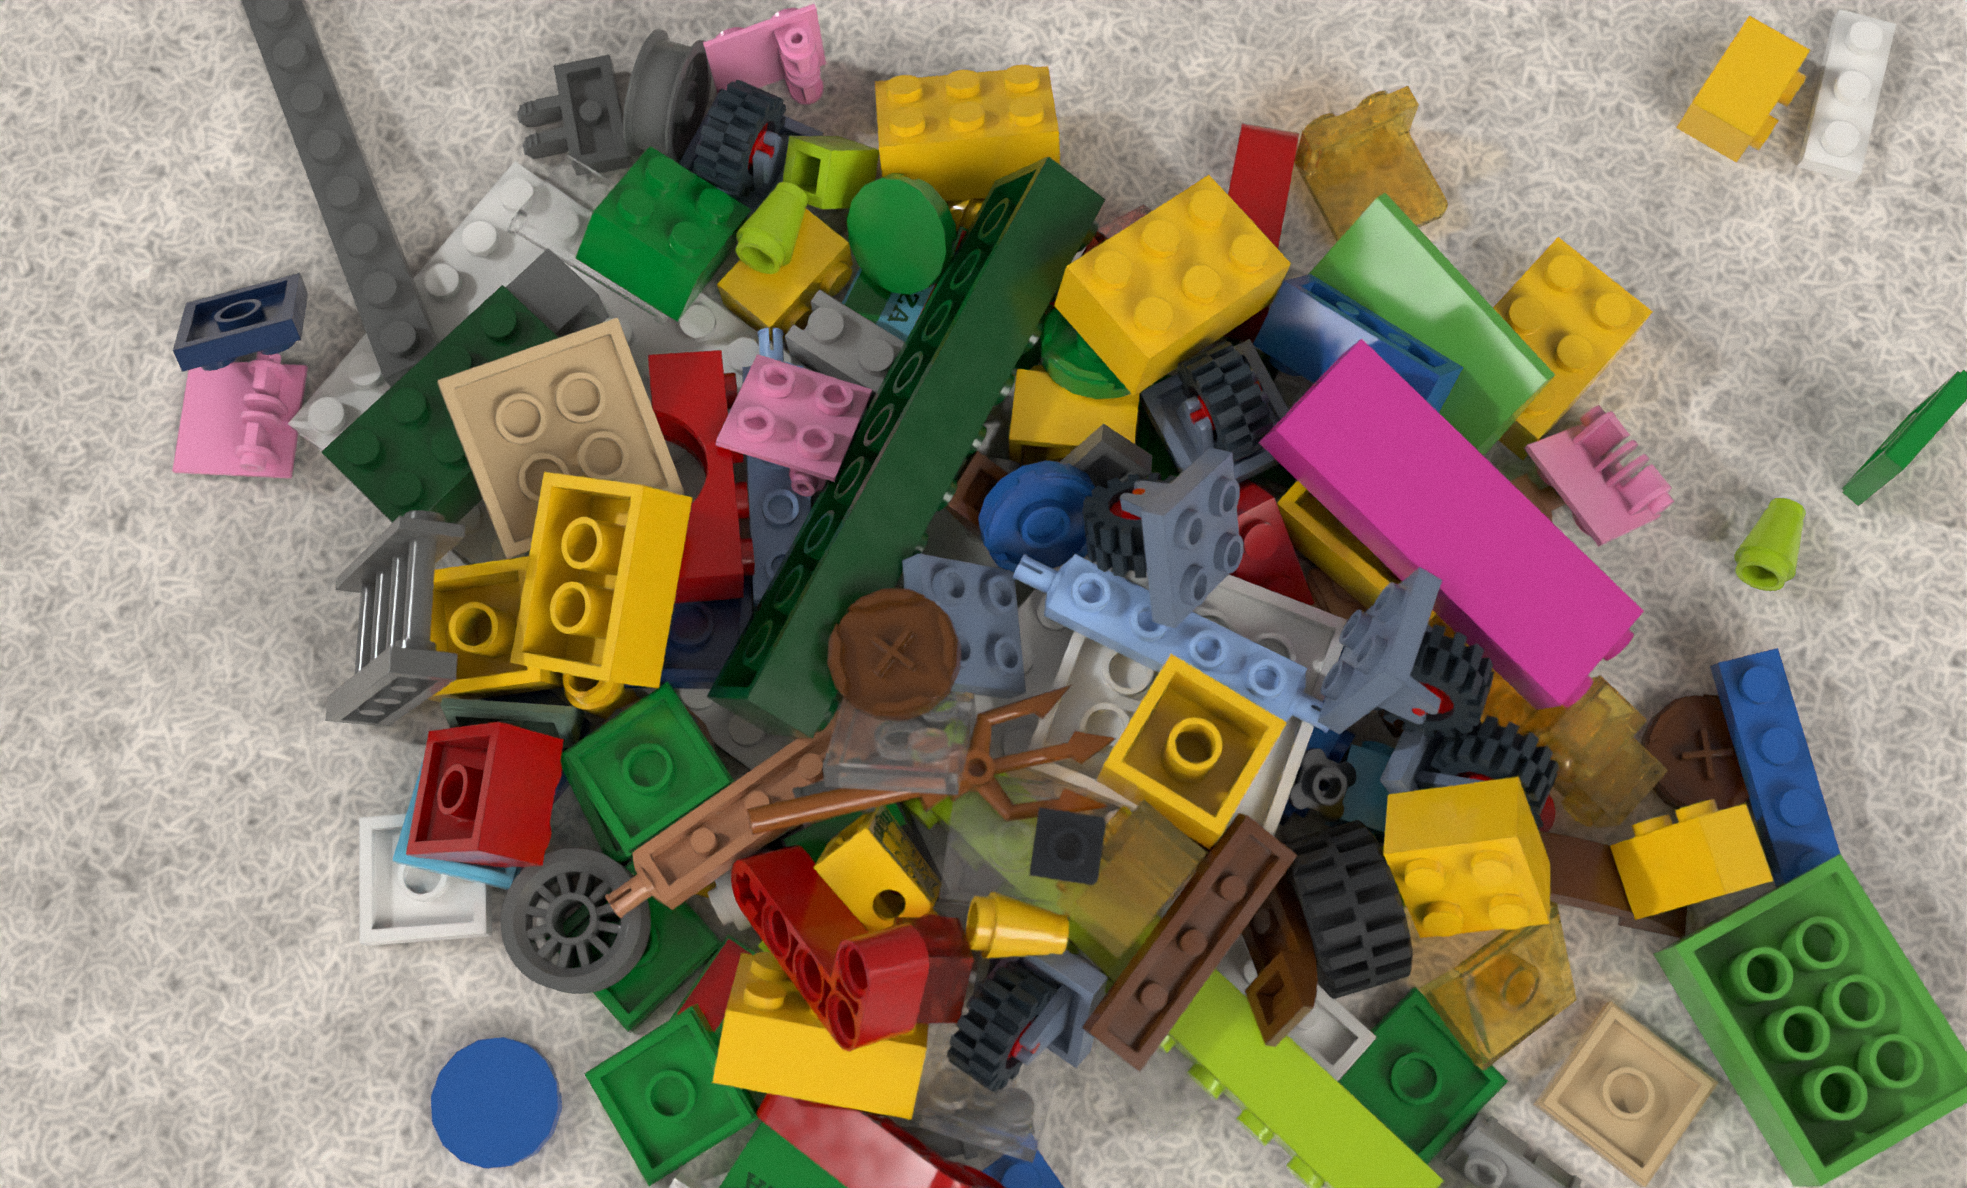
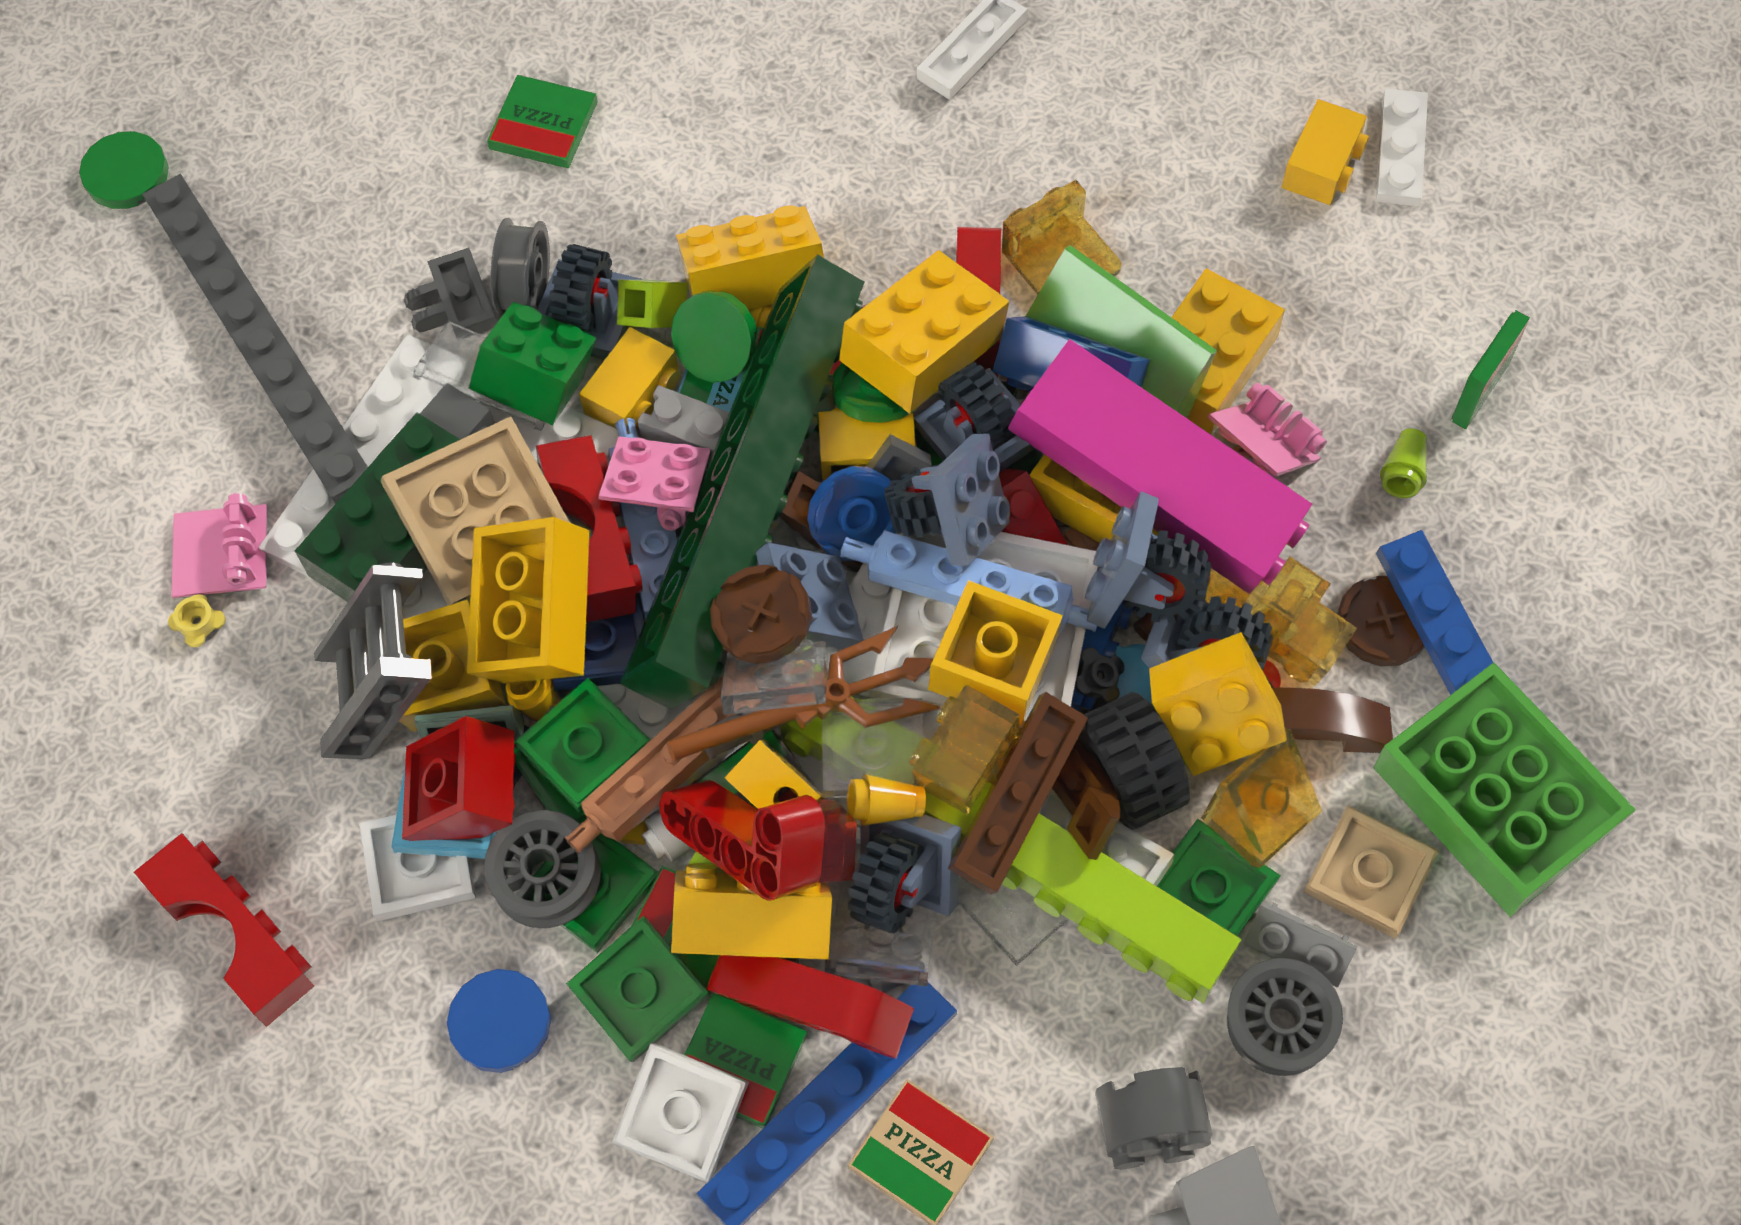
camera: 10 degrees left, 10 degrees down
(186, 496) = (192, 608): none -> light yellow plate
(216, 991) = (260, 971): none -> red arch
(241, 322) = (222, 472): dark blue plate -> none
(771, 51) = (595, 223): bright pink hinge -> none
(772, 230) = (616, 347): lime cone -> none
(1067, 846) = (913, 727): black bracket -> none
(1690, 860) = (1386, 684): yellow brick -> none

